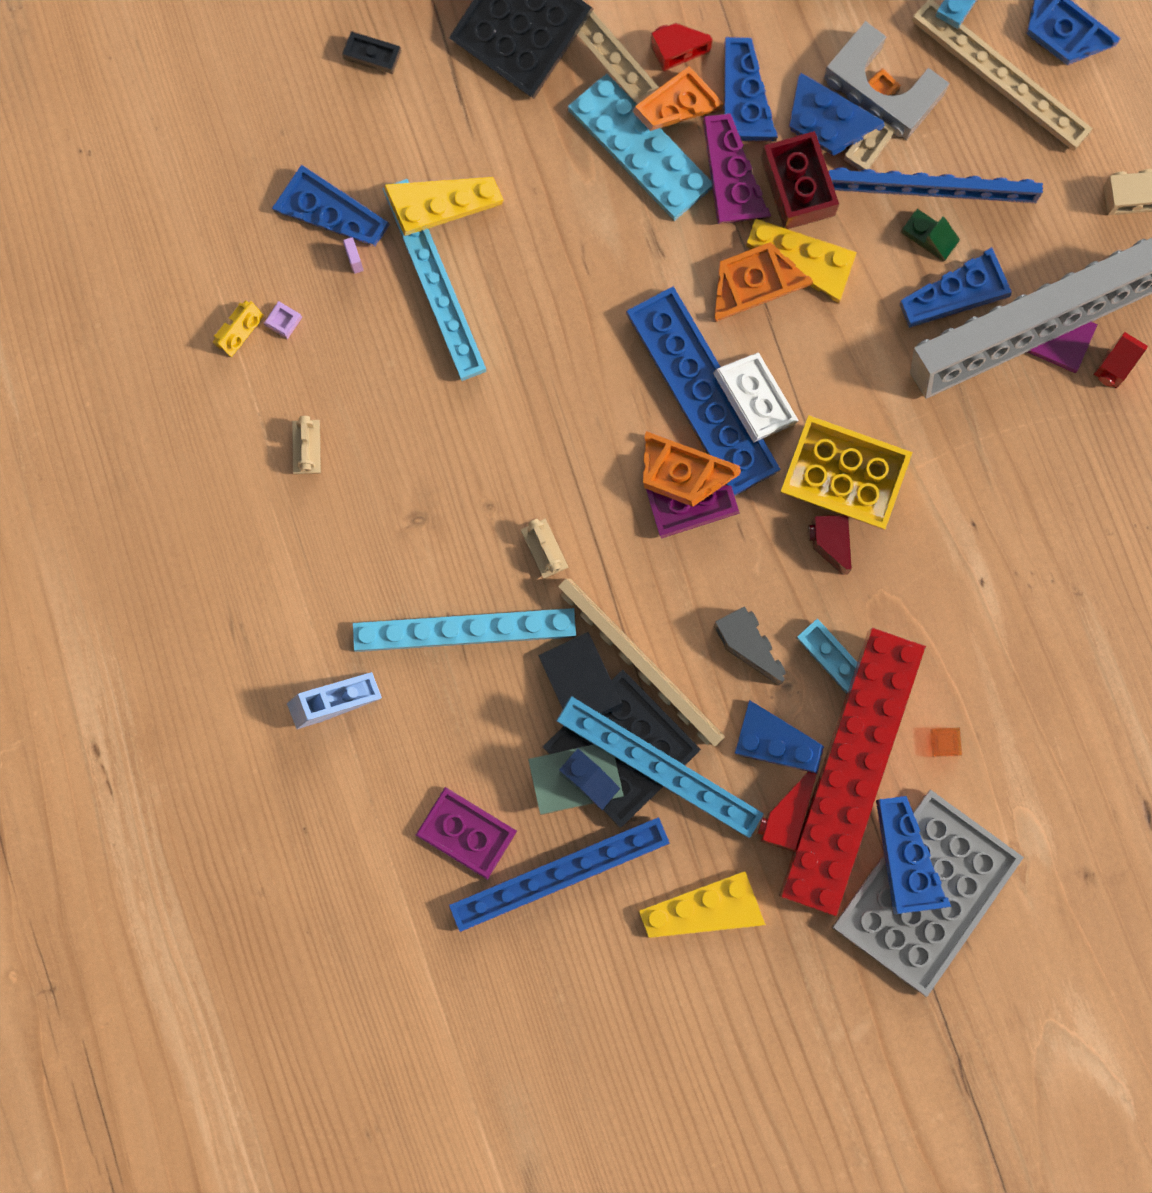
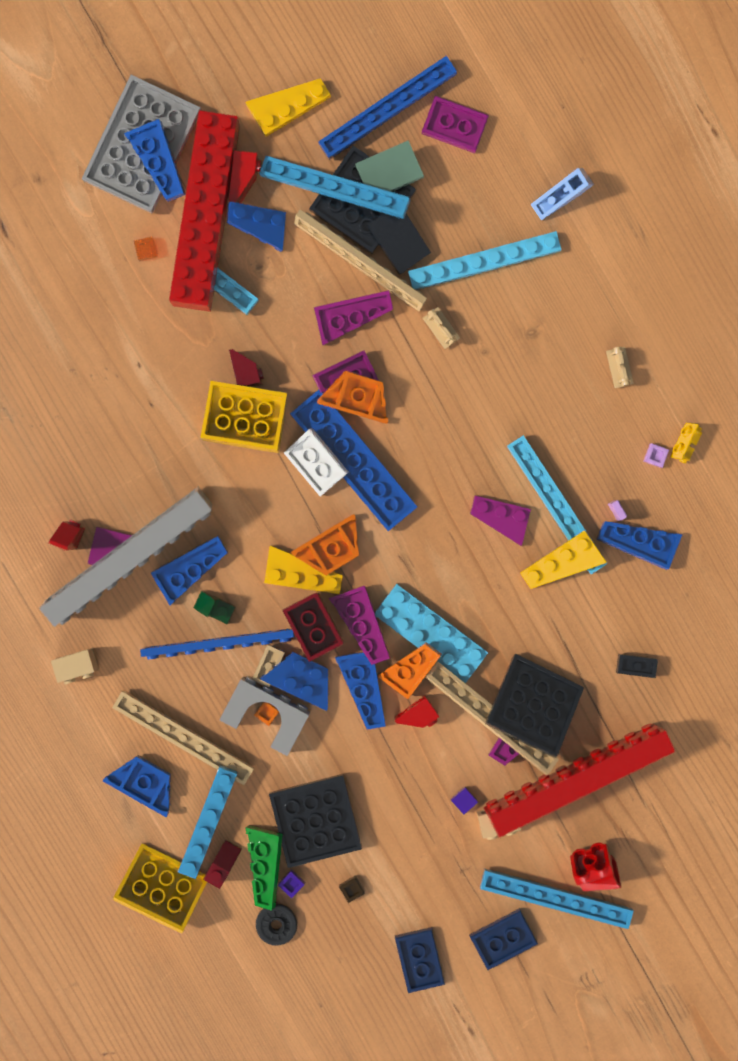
camera: 175 degrees right, 10 degrees up
(512, 279) = (501, 516): none -> magenta wing
(589, 779) = (381, 166): dark blue slope -> none
(672, 591) = (347, 315): none -> magenta wing
(742, 639) = (293, 288): dark grey slope -> none

